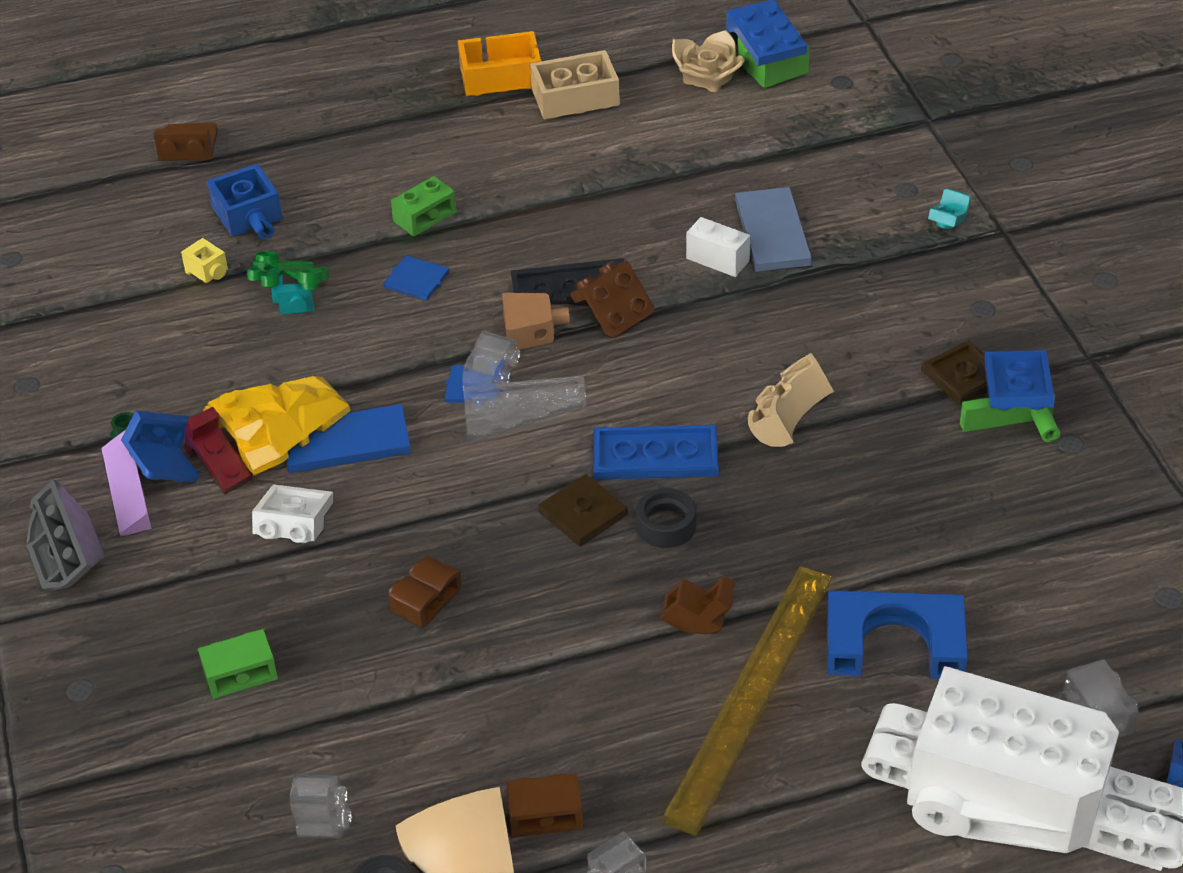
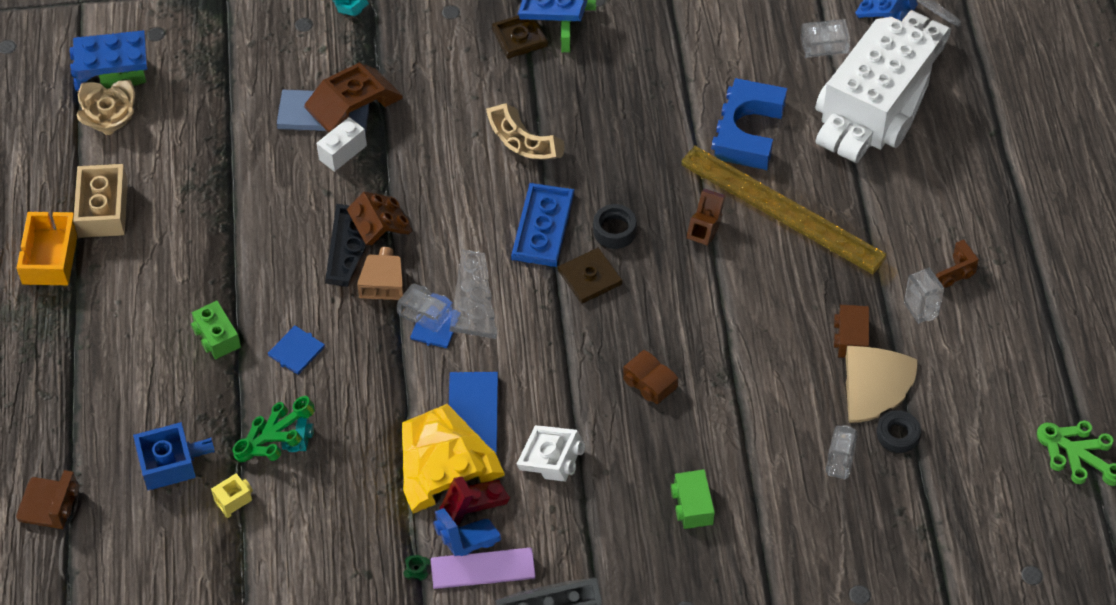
camera: 80 degrees left, 10 degrees up
(801, 234) = (347, 92): none -> reddish brown slope

